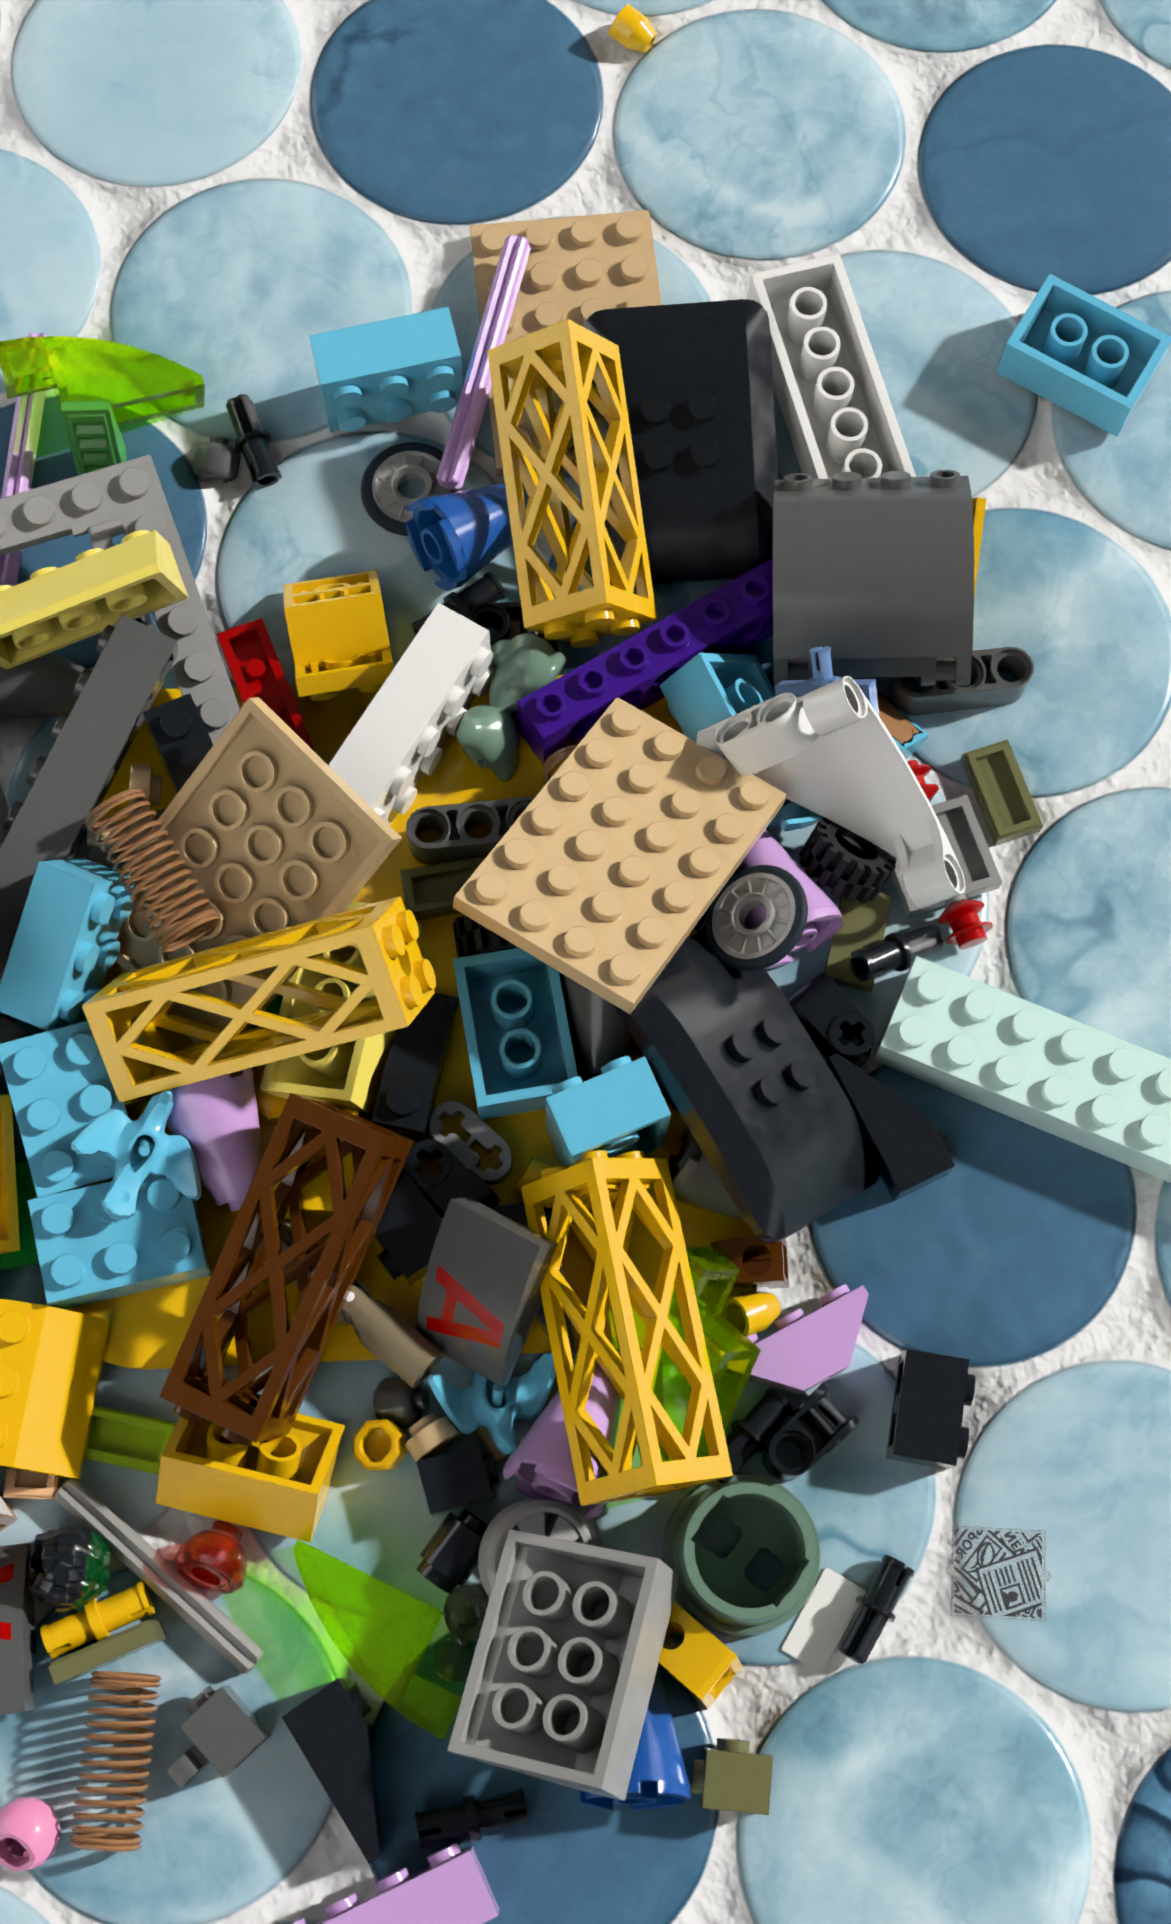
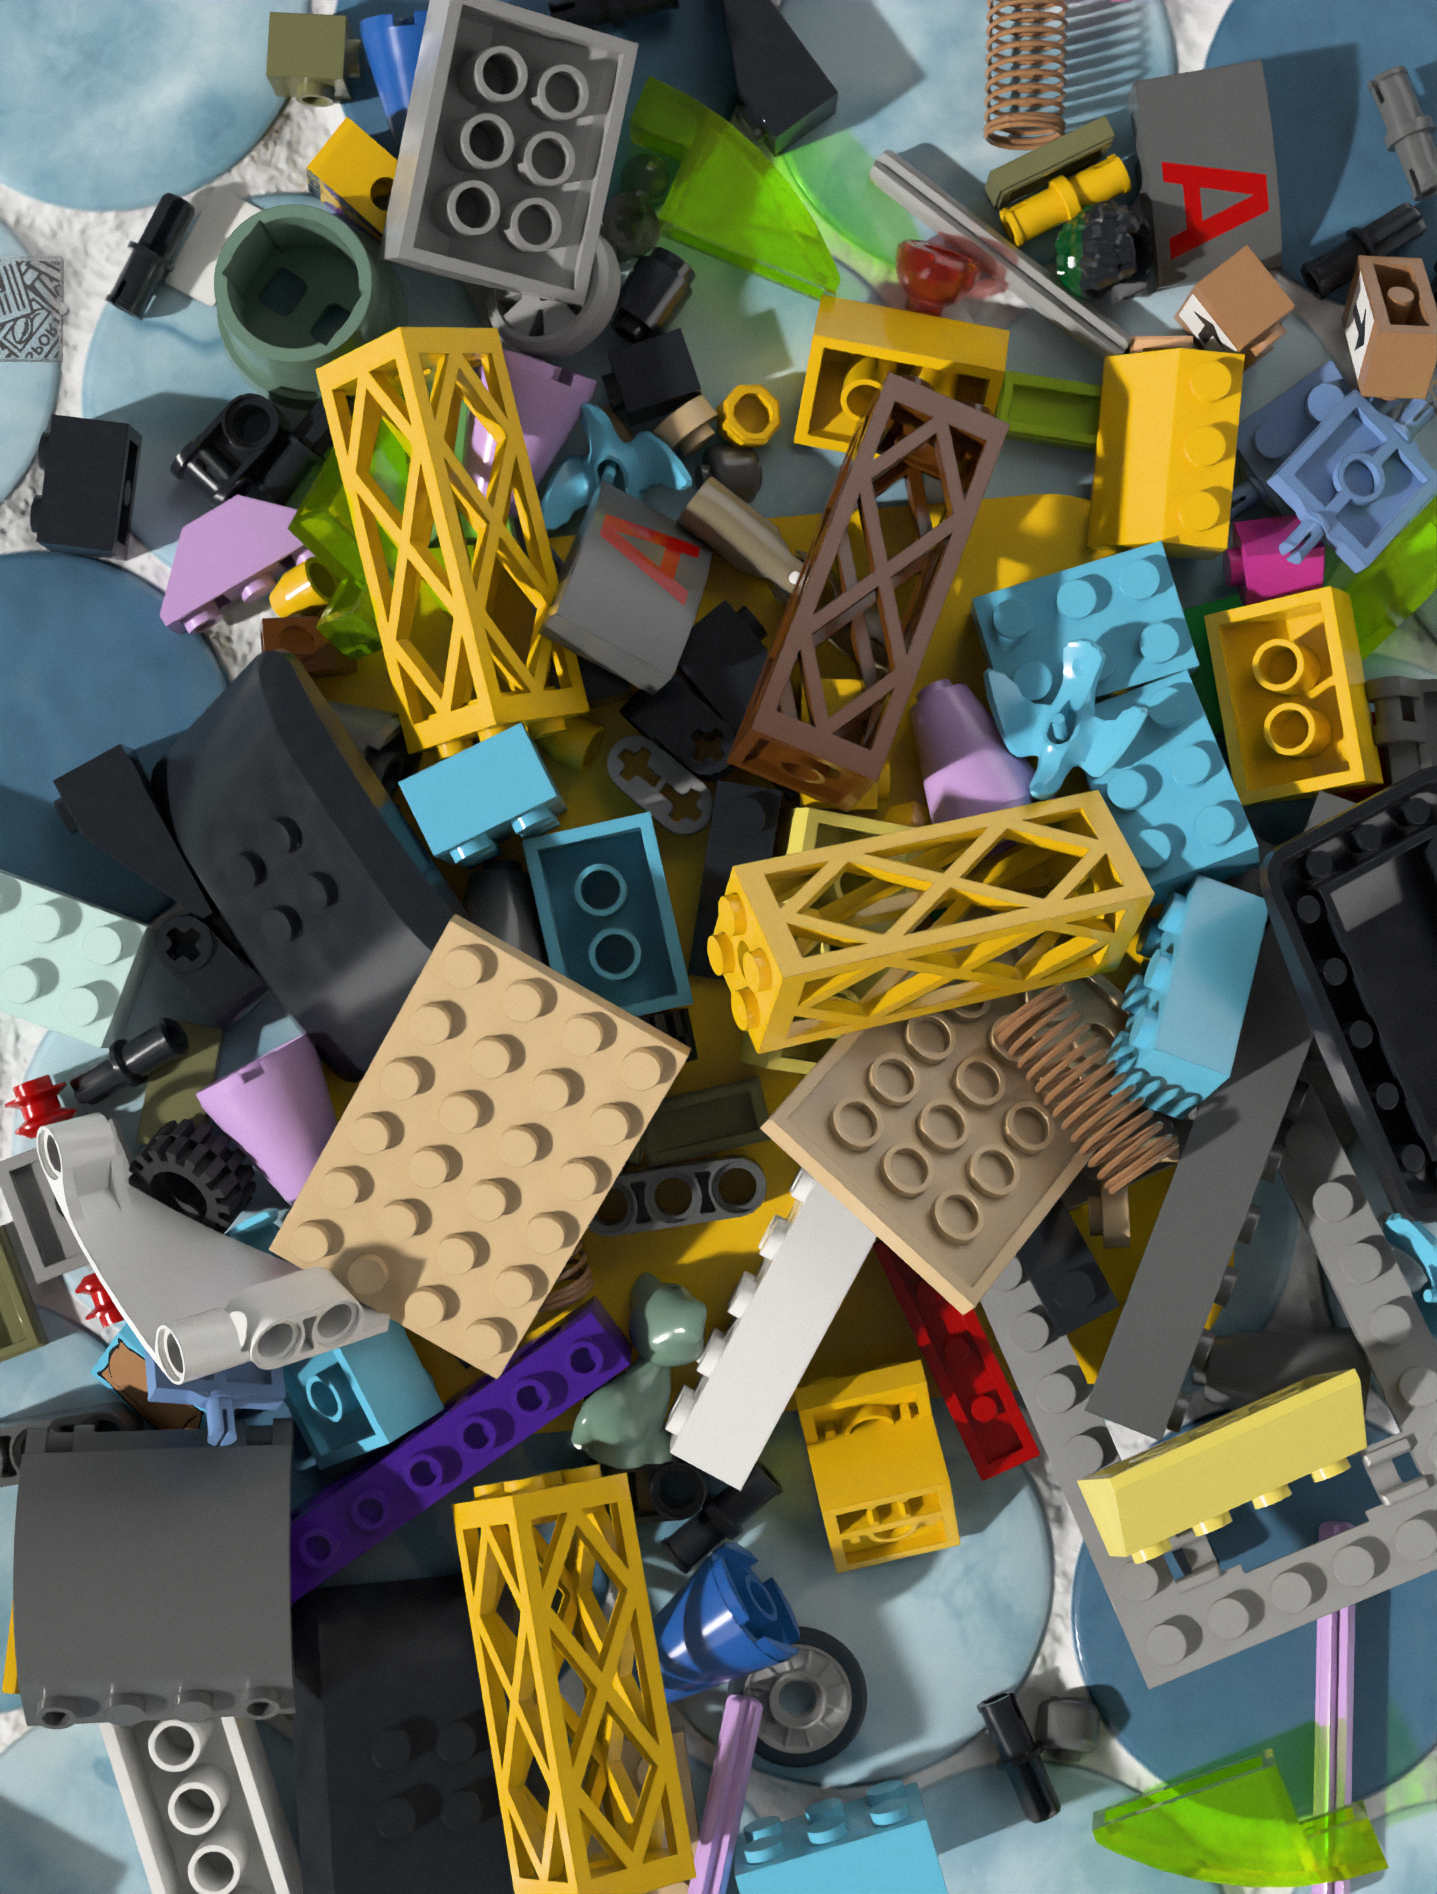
camera: 175 degrees left, 15 degrees up
(92, 435) = (1234, 1735): bright green slope -> none
(221, 1732) = (908, 78): dark grey brick -> none
(775, 937) = (266, 1067): light grey wheel -> none

